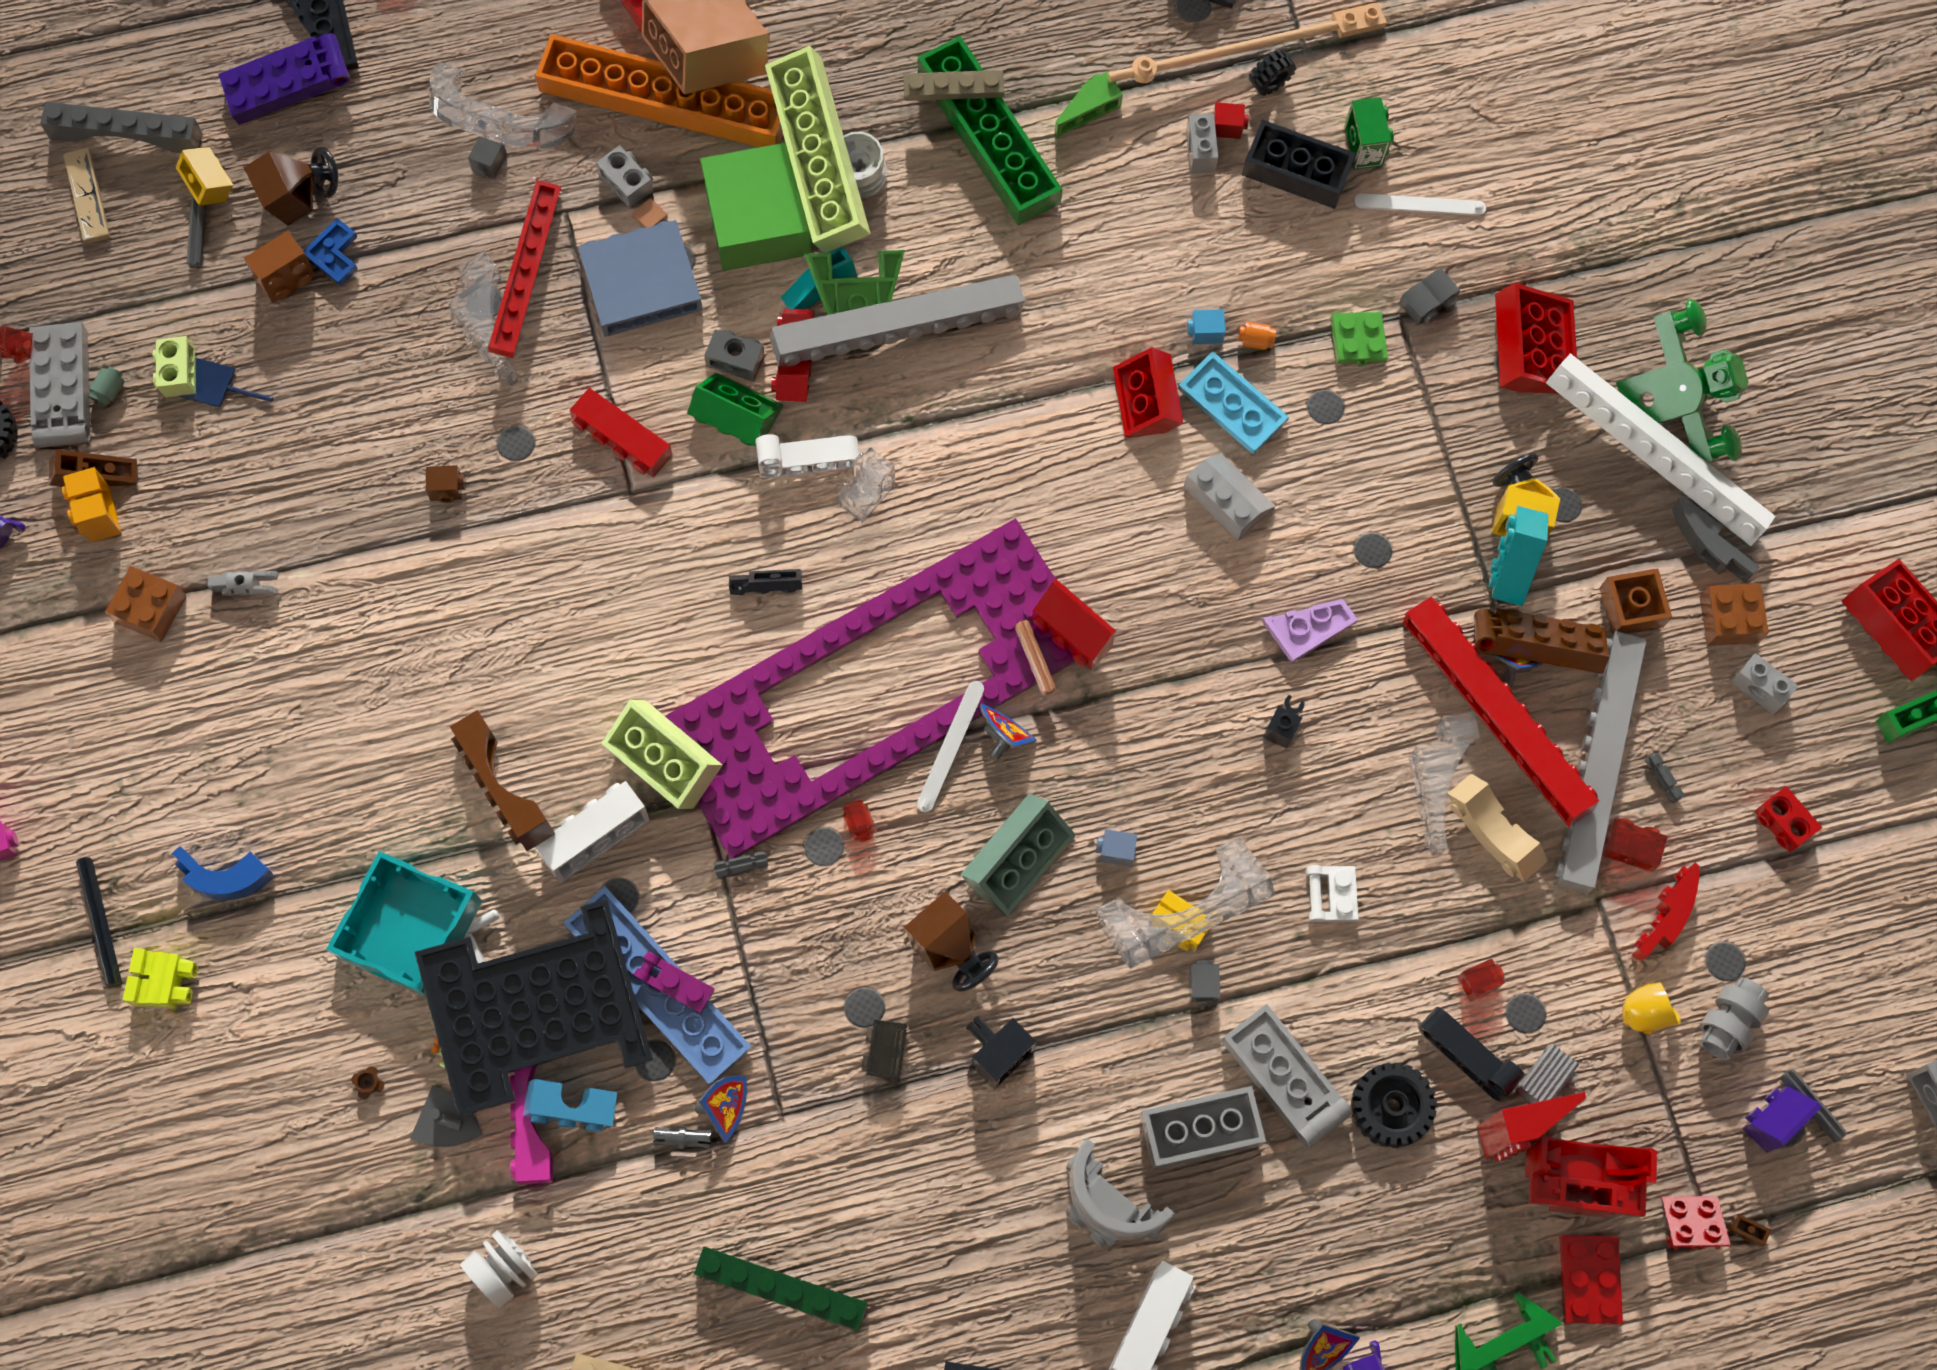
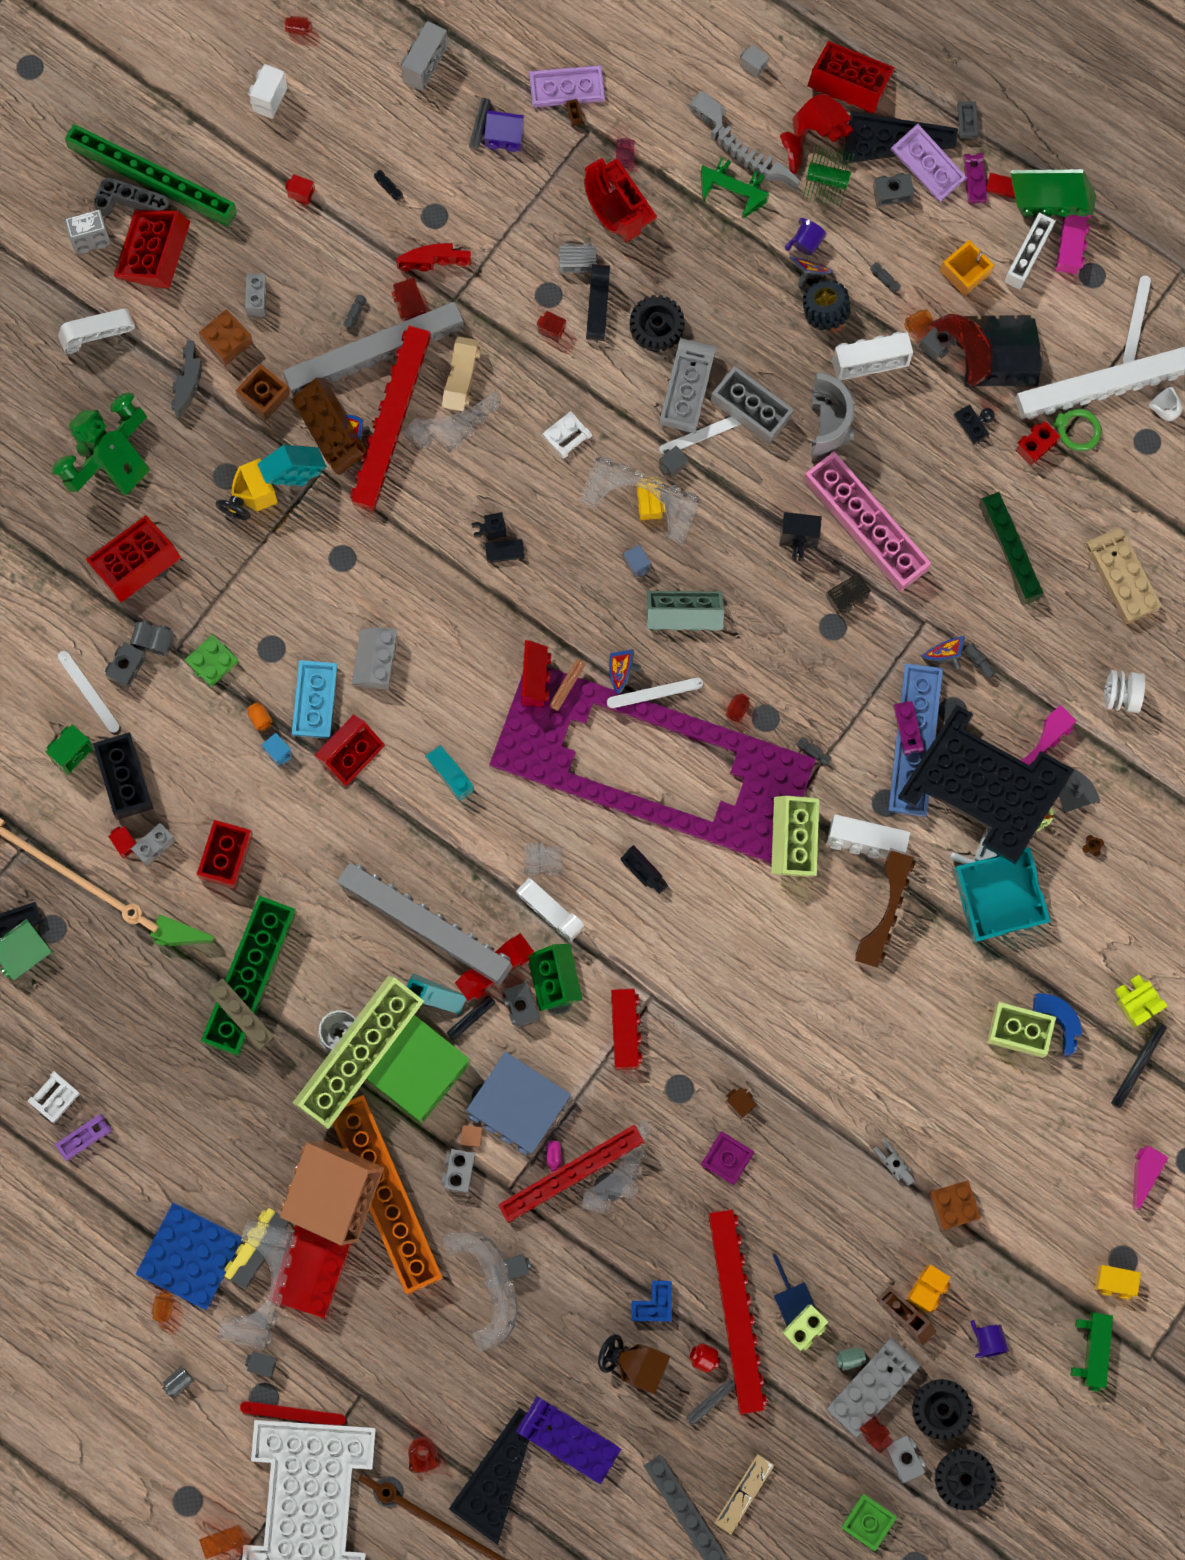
camera: 130 degrees left, 5 degrees up
(204, 176) = (673, 1427): yellow brick -> none
(234, 253) = (704, 1357): none -> red head
(248, 821) = (1021, 1030): none -> yellowish green brick
(253, 318) = (736, 1312): none -> red brick
(280, 267) = (694, 1319): dark orange brick -> none
(405, 431) = (727, 1158): none -> magenta tile
(545, 1103) = (1008, 714): dark azure arch -> none
(560, 274) = (554, 1155): none -> dark pink piece
(766, 301) = (471, 1017): none -> black axle
(854, 293) = (427, 960): bright green wing -> none
(946, 939) = (766, 604): reddish brown piece -> none
(952, 1143) = (867, 521): none -> bright pink brick
(1039, 472) = (450, 773): none -> teal slope
(1135, 196) = (224, 854): none -> red brick
(1214, 1045) = (700, 435): none -> white piece
(1246, 719) = (504, 550): none -> black tile
(1260, 1324) = (826, 305): none -> black wheel
(1272, 72) = (70, 838): black tyre -> none
(1309, 628) = (421, 555): lavender wing -> none
(1419, 237) = (125, 676): none -> dark grey brick
(1517, 1127) = (618, 242): red slope -> none
(1591, 1279) = (664, 170): red plate -> none
(1648, 1248) = (625, 152): none -> clear pink bracket
(1649, 1009) = (498, 231): yellow piece -> none
(1660, 450) = (155, 441): white brick -> none
(1695, 1222) = (592, 139): hinge -> none
(1740, 1009) = (468, 187): light grey piece -> none
(1792, 1252) = (561, 85): none -> lavender tile
(1793, 815) = (325, 233): red brick -> none
(1804, 936) = (388, 185): none -> black axle
(1845, 488) = (95, 327): none -> white beam
(1869, 831) = (300, 189): none -> red brick

